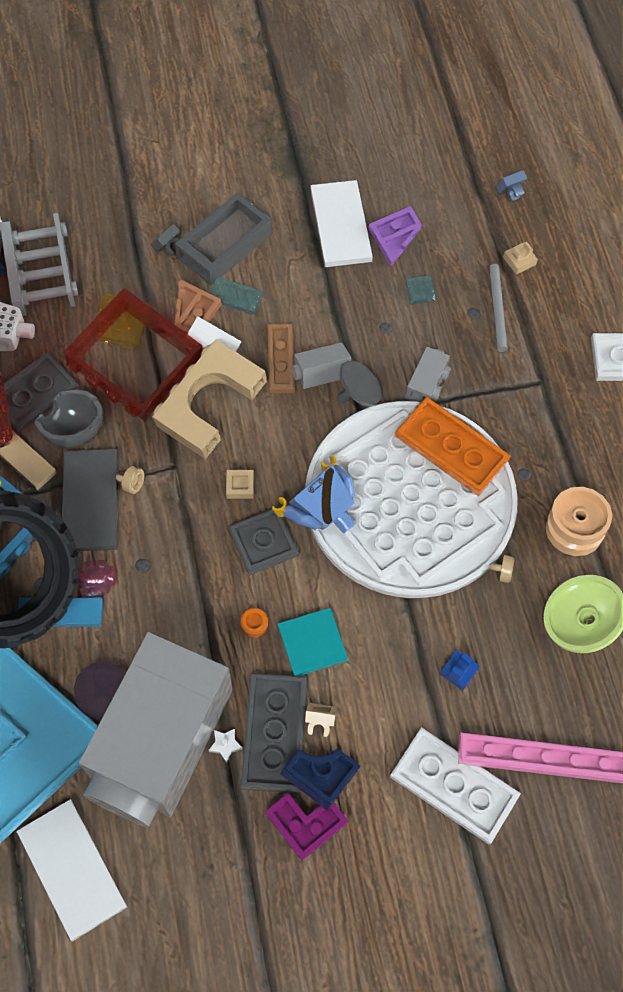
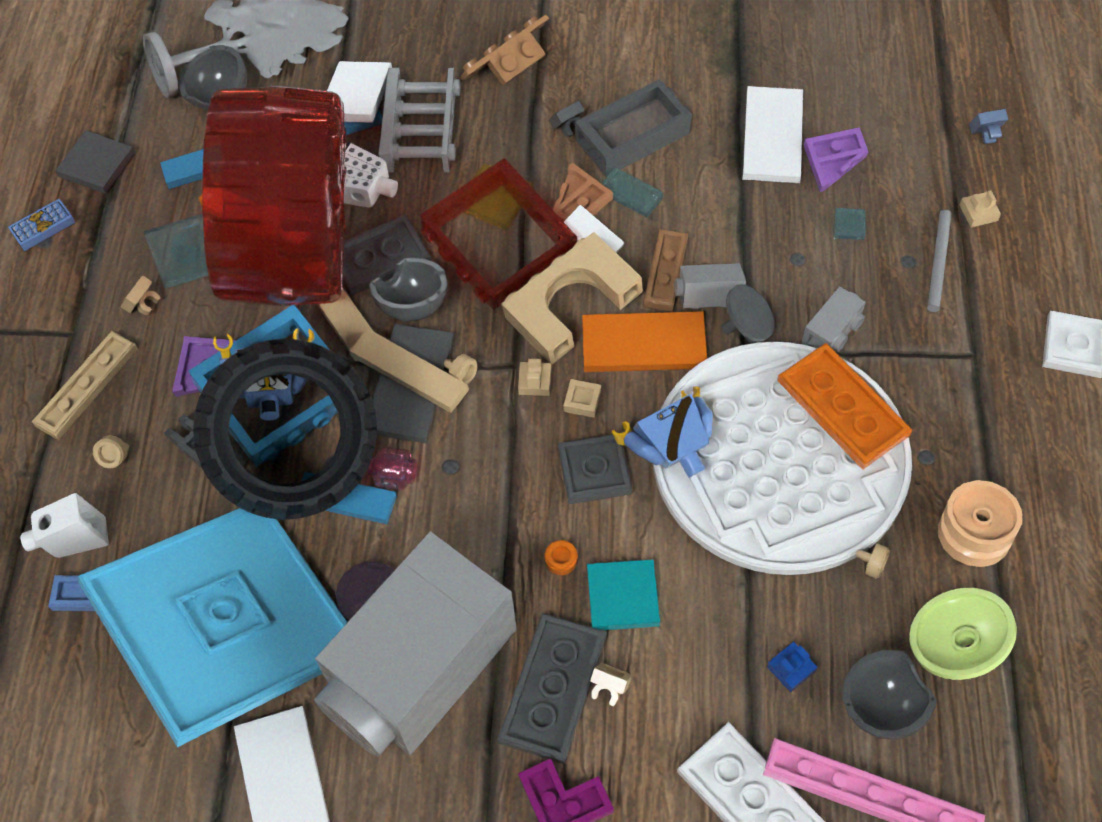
camera: 20 degrees right, 5 degrees down
(87, 490) = (409, 370): none -> tan tile
(106, 193) = (513, 56): none -> medium nougat bracket
(194, 474) = (534, 378): none -> tan tile
(225, 744) = (493, 687): white piece -> none
(277, 424) = (643, 341): none -> orange tile
(321, 776) = (594, 749): dark blue tile -> none
(540, 678) = (887, 696): none -> dark grey cylinder

